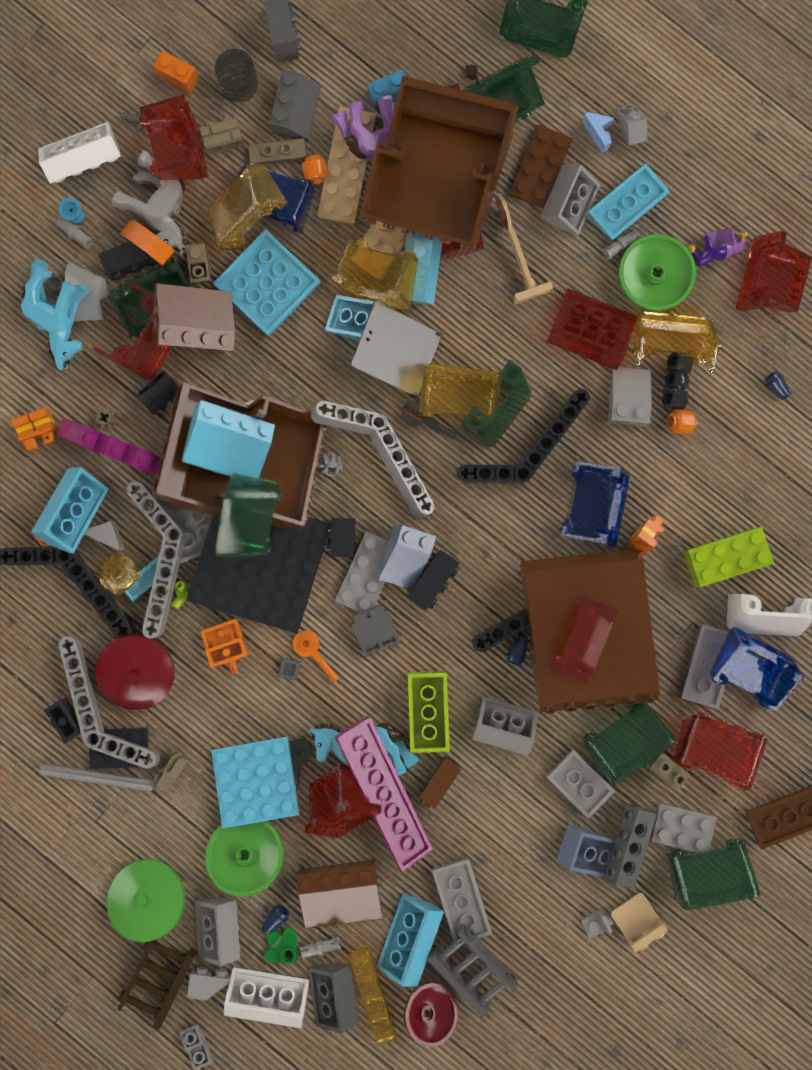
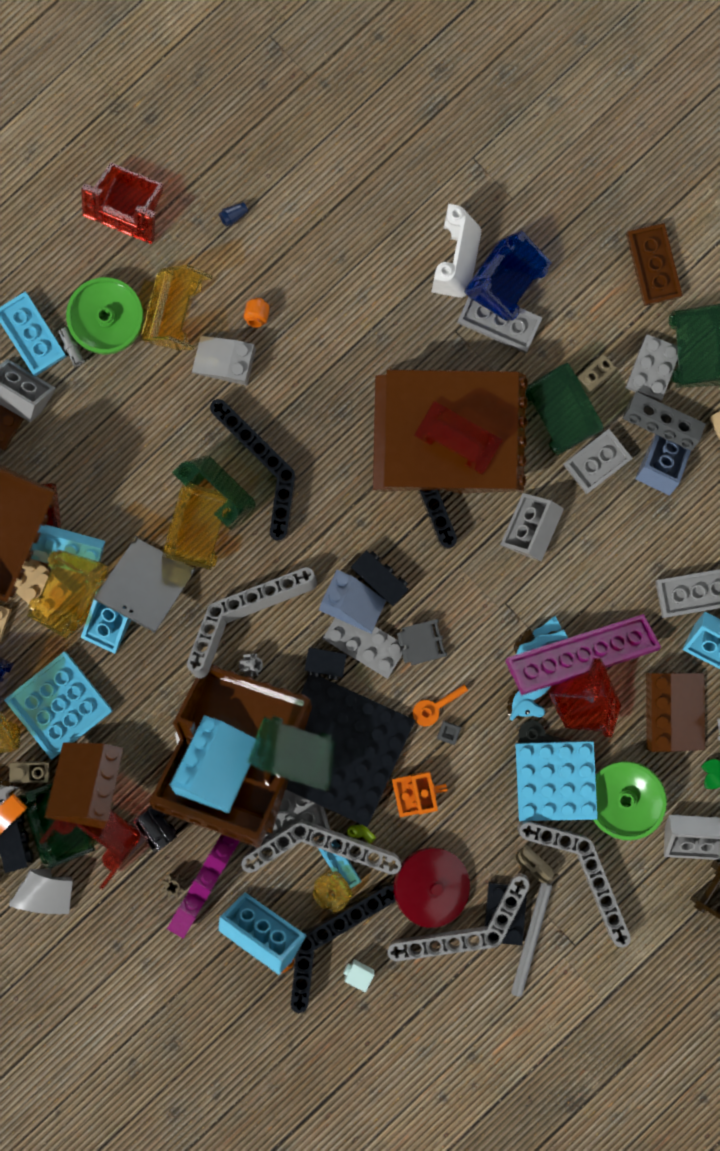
camera: 80 degrees left, 0 degrees up
(35, 426) = (171, 959): orange hips -> none
(41, 611) = (358, 975): none -> light aqua brick
(53, 317) = (63, 926): medium azure animal -> none
(55, 283) = (29, 920): dark grey plate -> none
(64, 719) = (470, 964): black brick -> none
(107, 534) = (290, 899): light grey slope -> none
(146, 900) = (658, 904): bright green dish -> none
(168, 828) = (591, 873): none -> light grey beam
(275, 919) = (692, 778): dark blue cone -> none
(414, 418) = (215, 576): pearl dark grey piece -> none
(428, 712) = (508, 600): lime brick -> none
(439, 782) = (579, 599): reddish brown brick -> none
(518, 651) = (461, 504): dark blue cone -> none
(531, 290) = (103, 441): tan piece -> none
(592, 329) = (152, 387): clear red slope -> none
(597, 504) = (326, 406): clear blue windscreen -> none
(644, 535) = (364, 365): orange hips -> none
(677, 381) = (215, 311): black piece -> none
(719, 246) = (87, 251): piece -> none
(720, 749) = (581, 321): clear red windscreen -> none
(728, 557) = (395, 286): lime brick -> none

